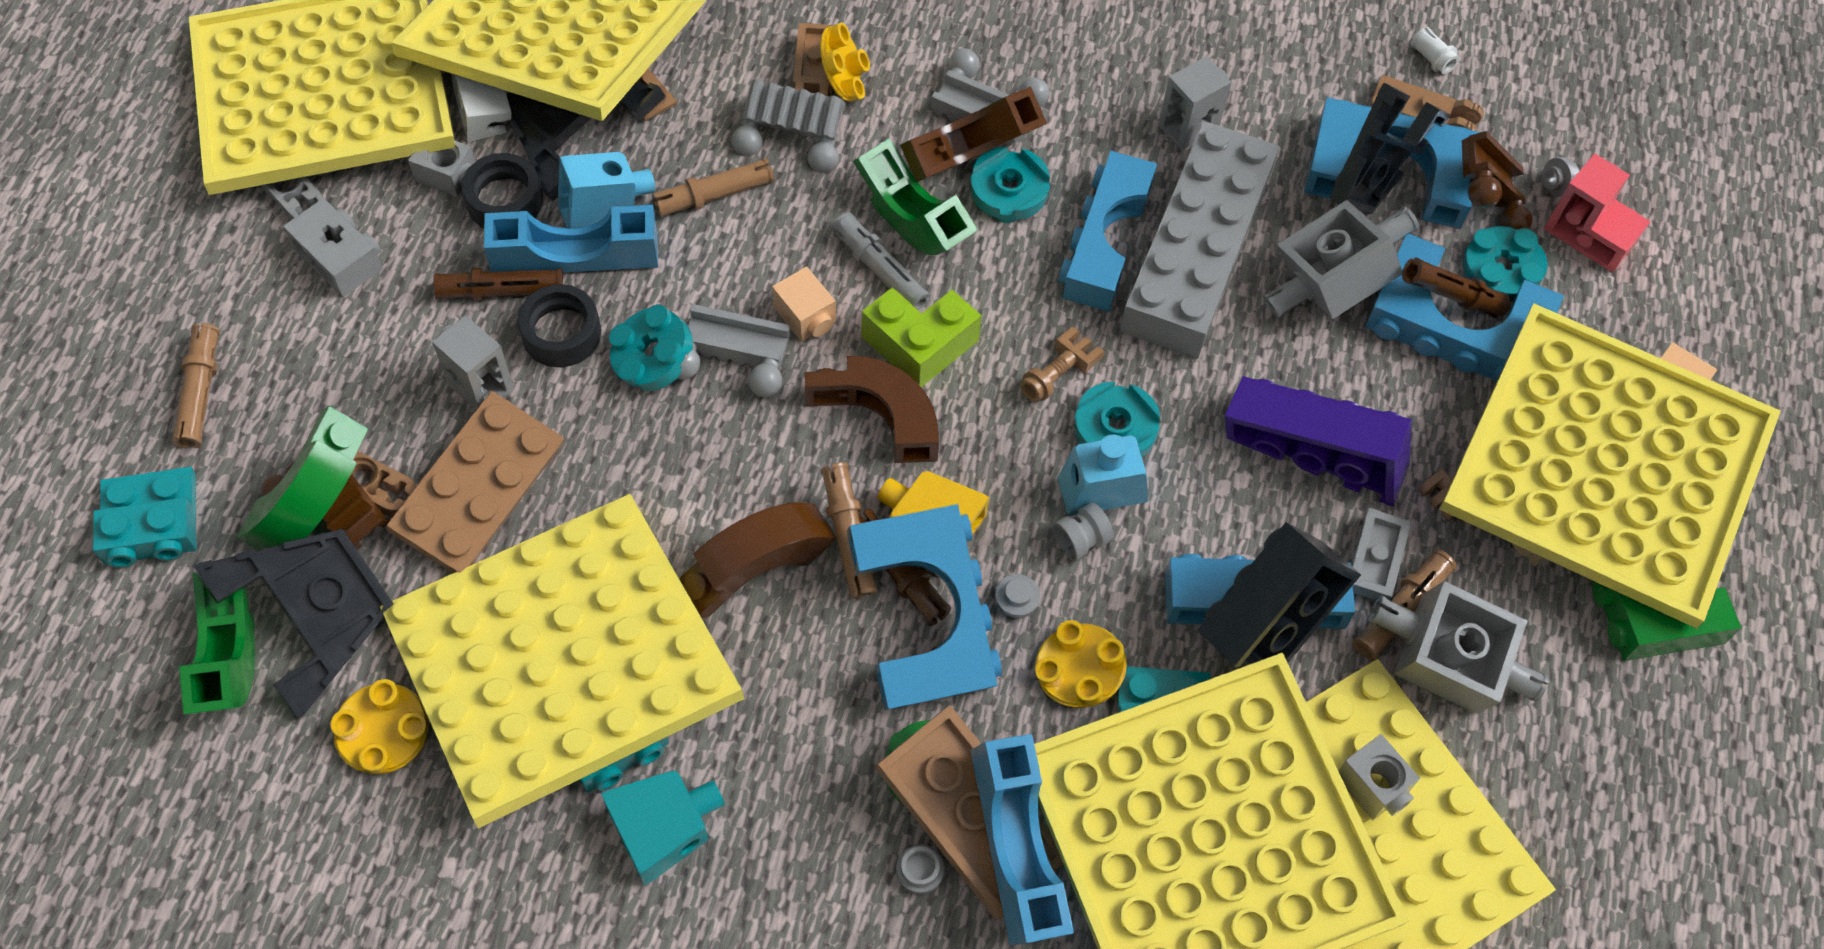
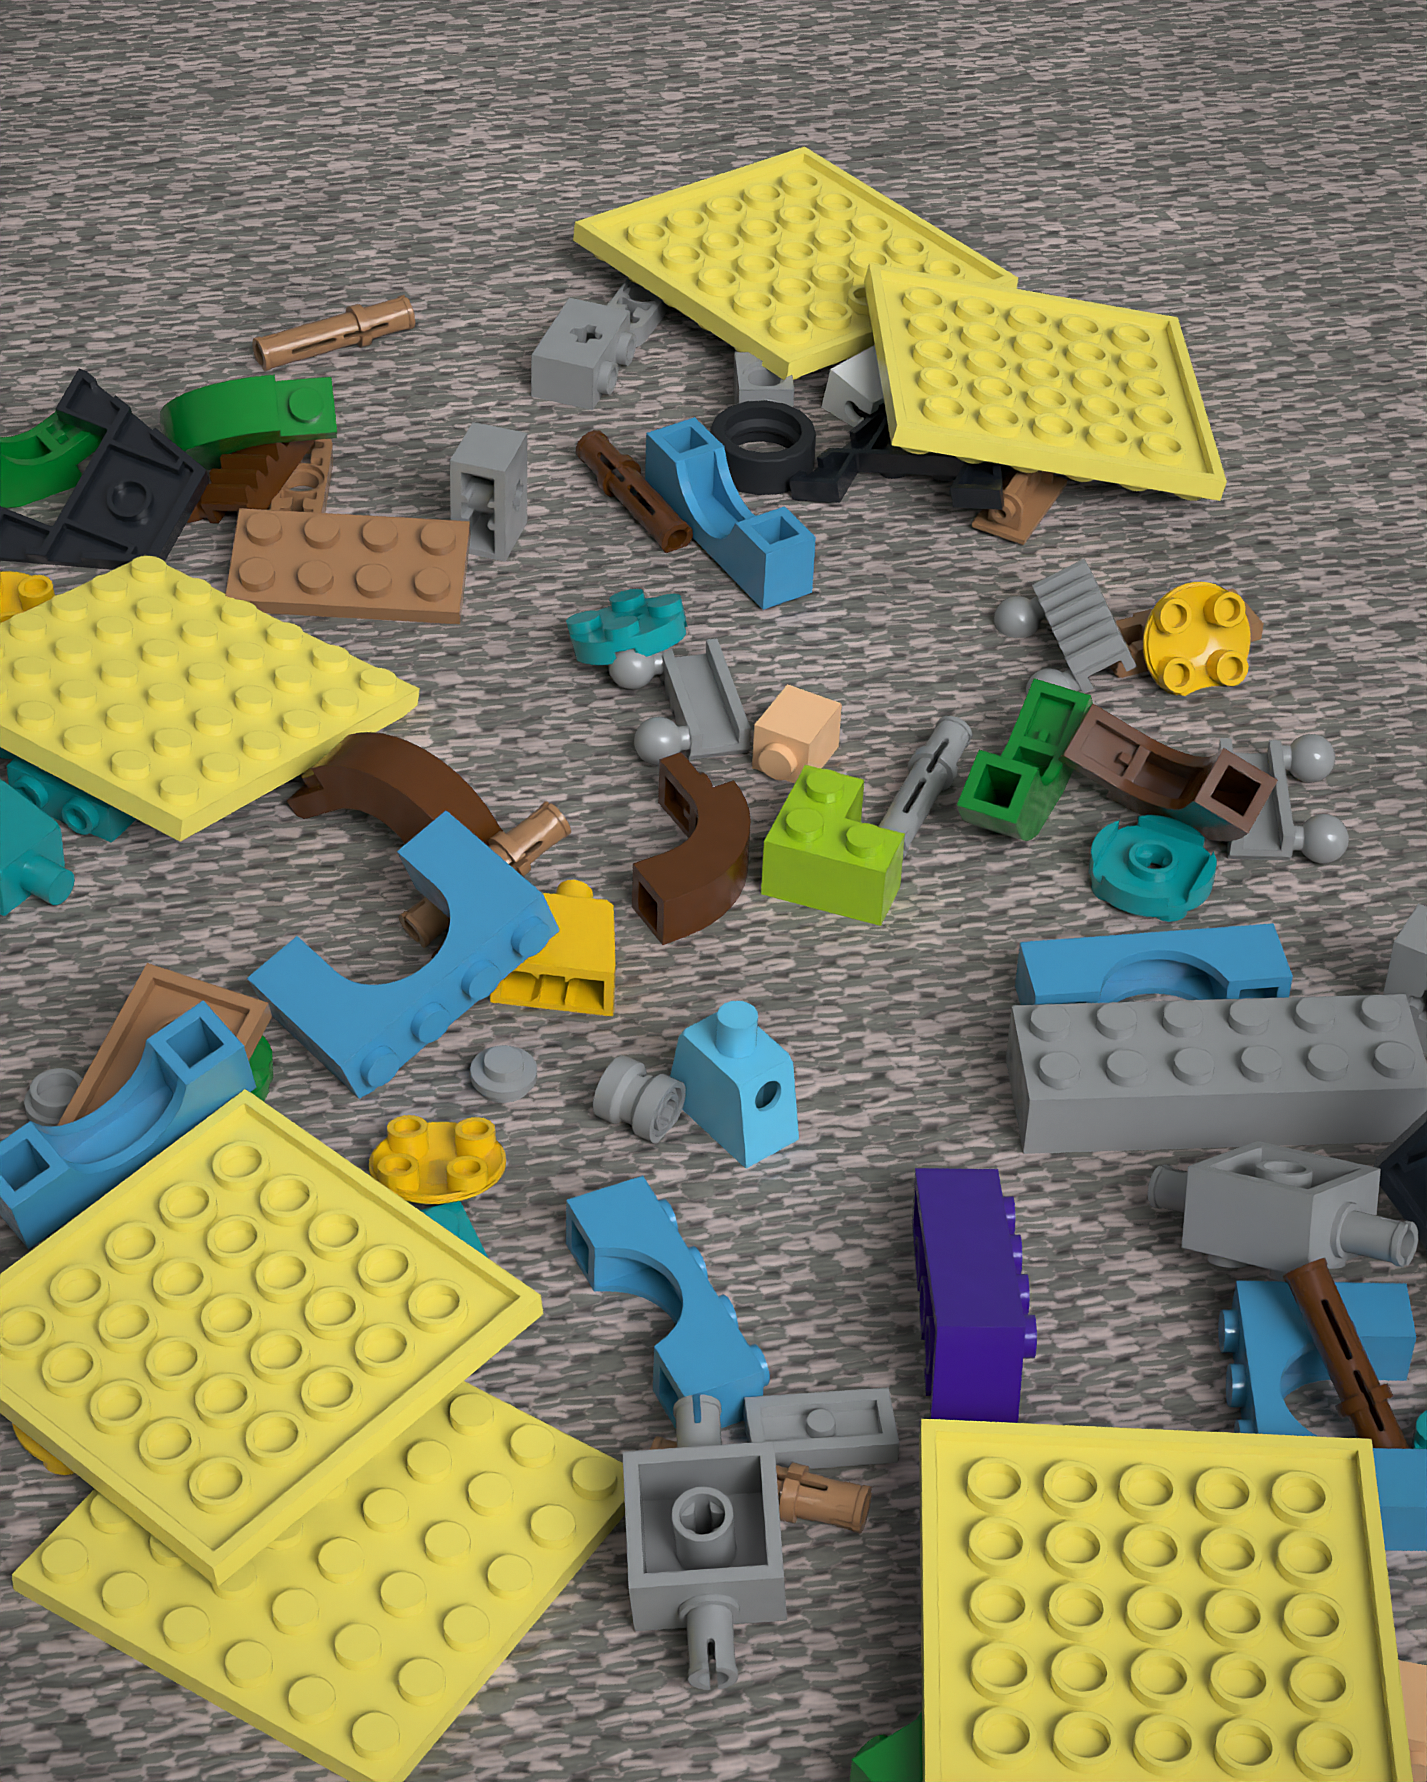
camera: 65 degrees right, 20 degrees down
(146, 517) = (149, 362): teal plate -> none
(564, 352) = (609, 527): black tyre -> none
(595, 184) = (823, 497): medium azure torso -> none
(697, 192) = (896, 598): medium nougat pin -> none
(1038, 383) = (934, 1021): medium nougat hinge -> none
(1108, 400) = (855, 1115): teal plate -> none
(1278, 598) = (624, 1269): black brick -> none
(1381, 759) = (426, 1485): light grey brick -> none

